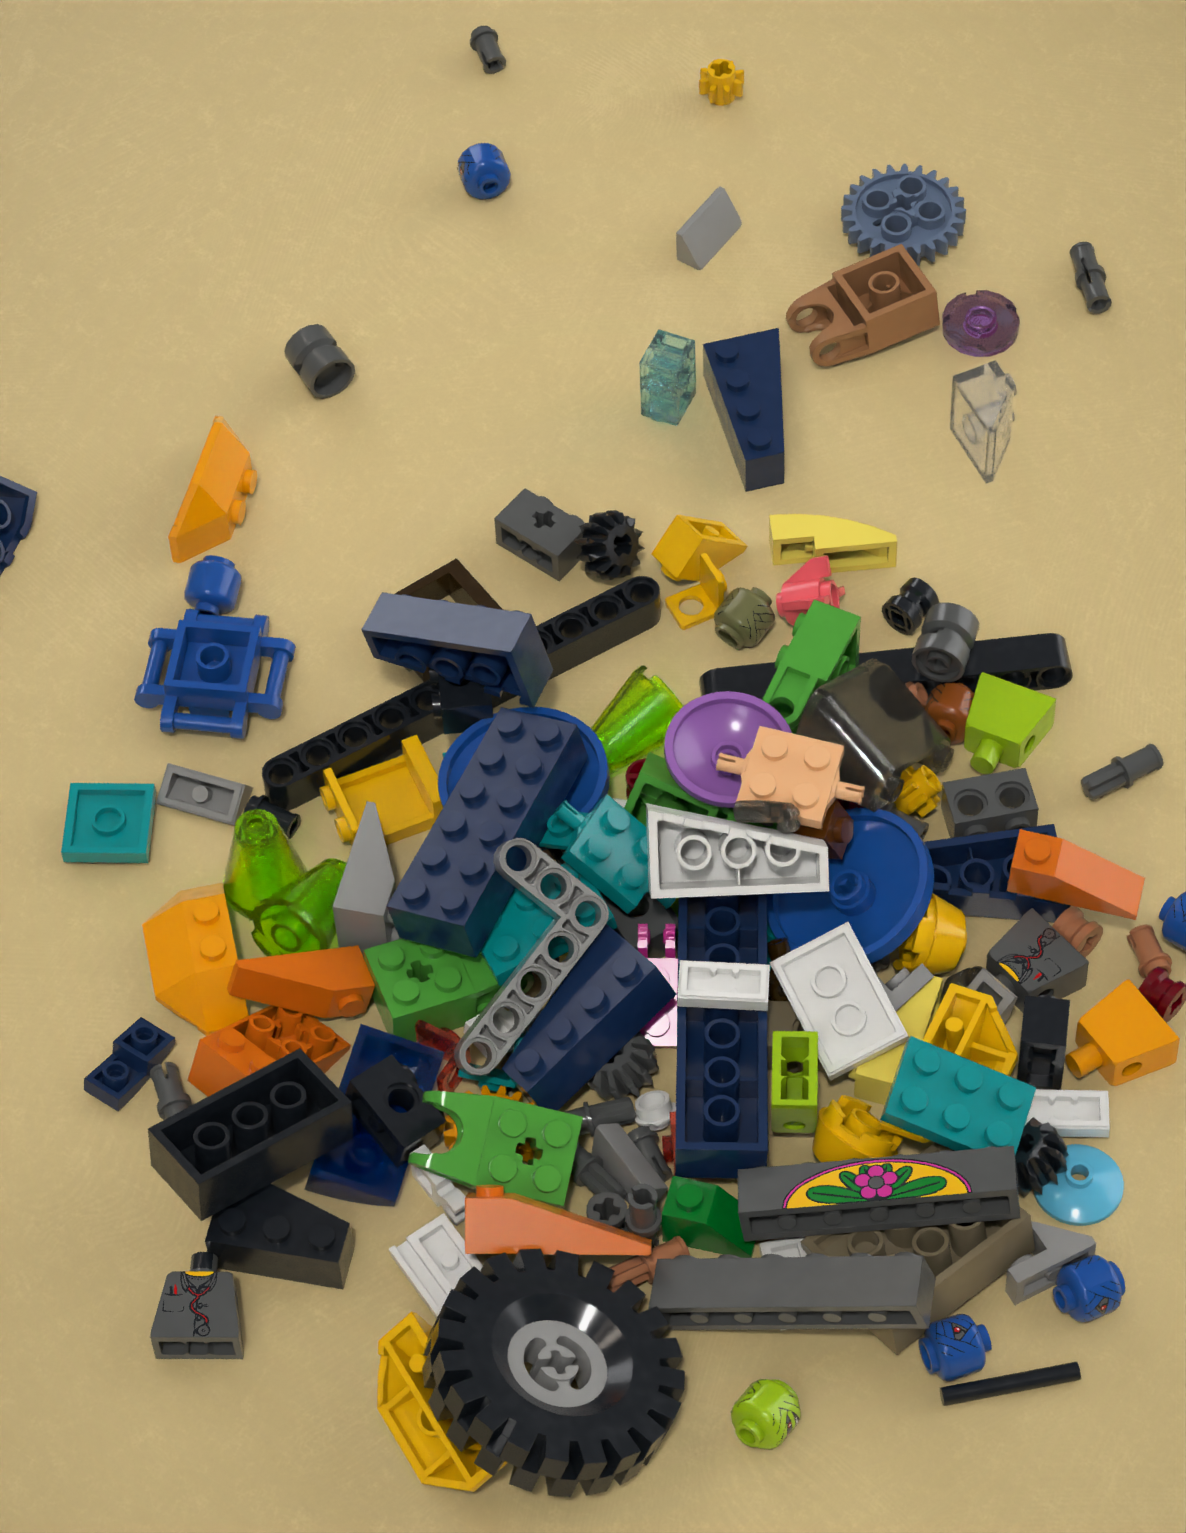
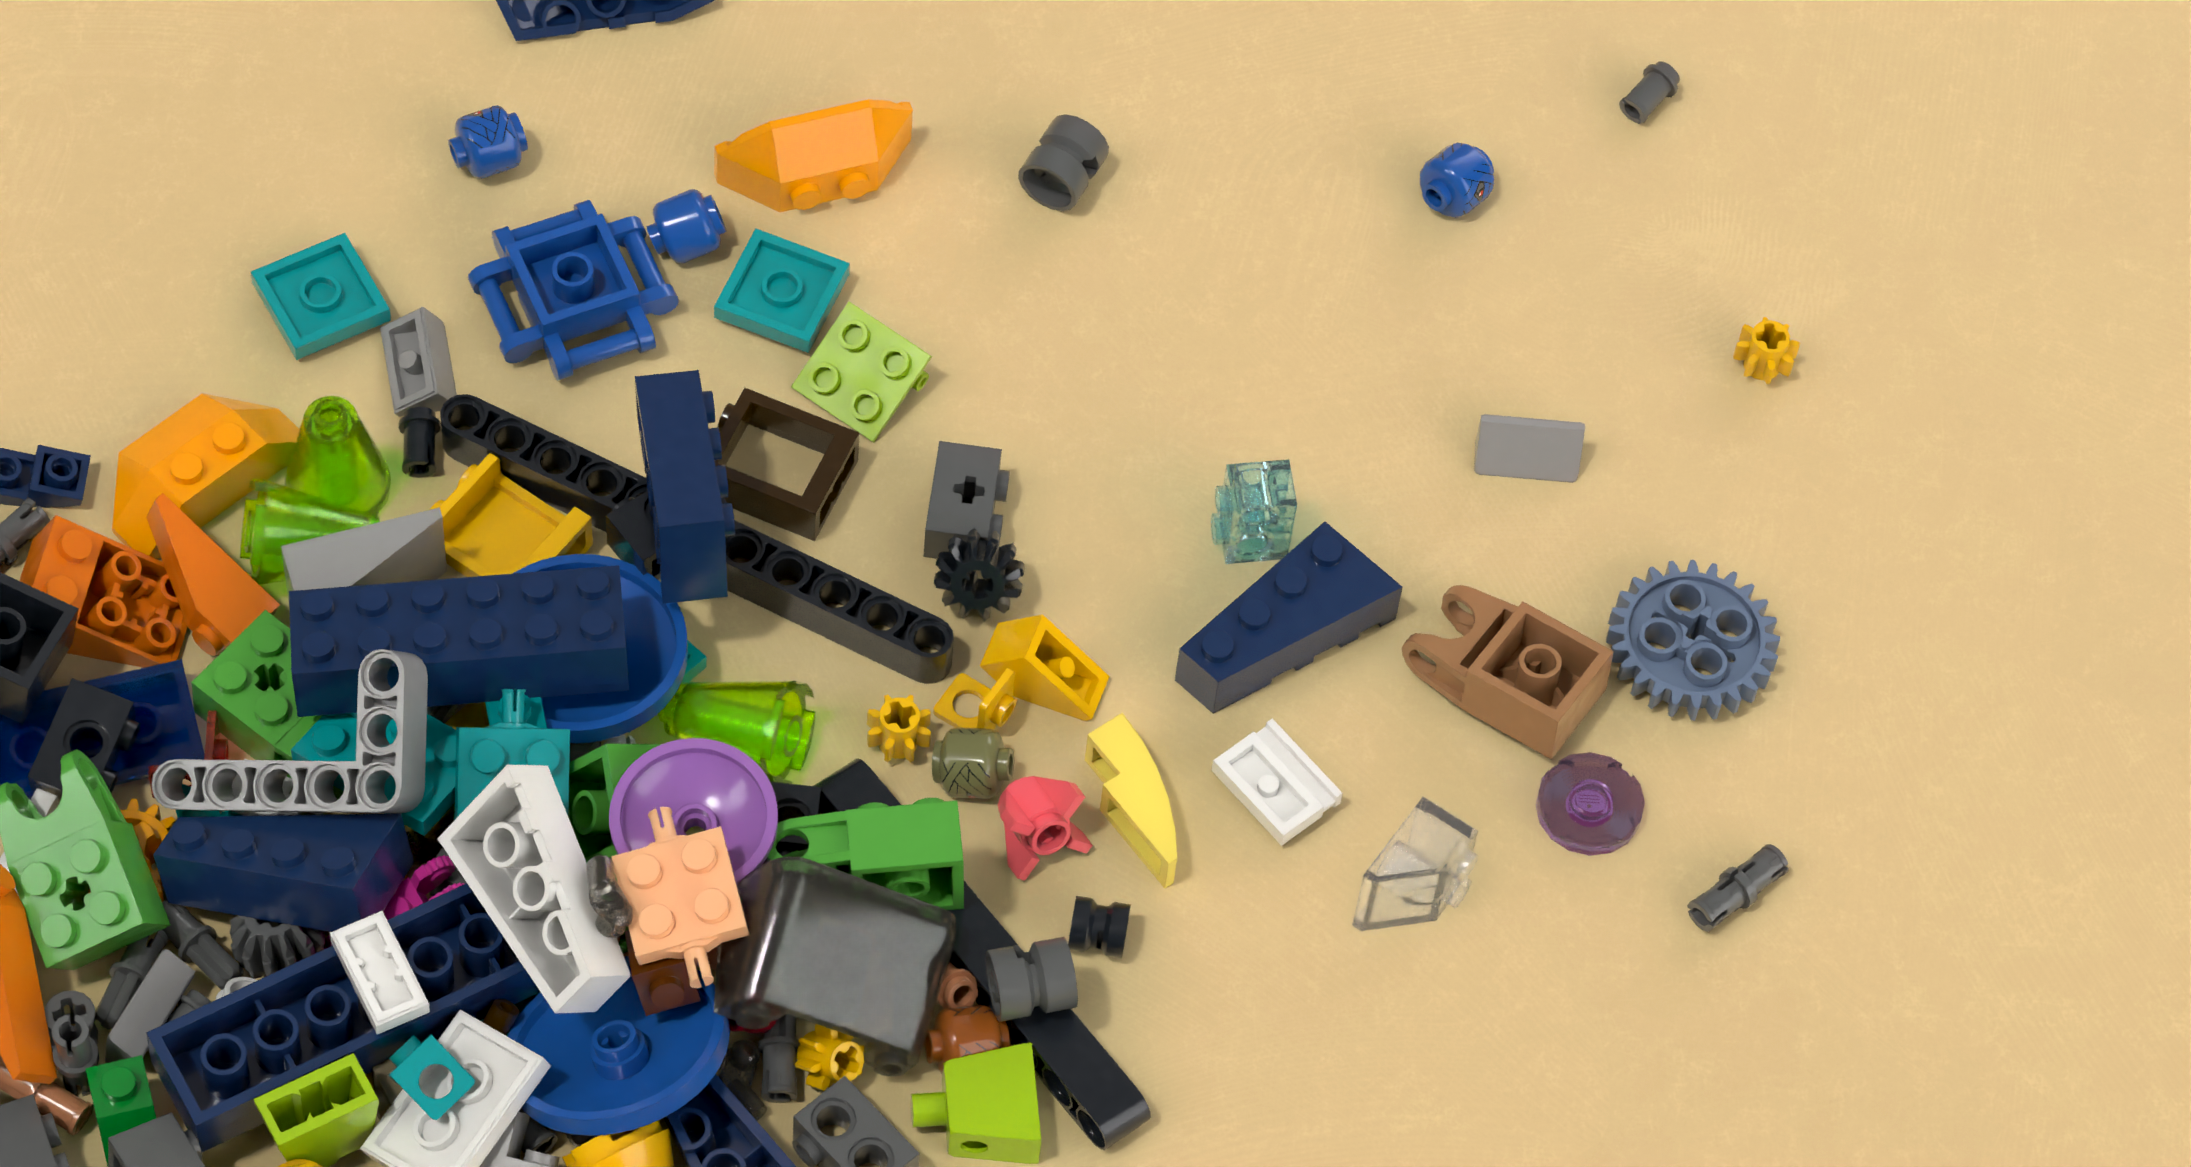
camera: 50 degrees right, 5 degrees up
(58, 666) = (488, 142): none -> blue head
(301, 559) = (781, 290): none -> teal plate
(398, 543) = (862, 372): none -> lime hinge
(690, 645) = (898, 728): none -> yellow gear
(795, 1003) = (413, 1059): none -> teal bracket
(863, 468) = (1276, 782): none -> white plate

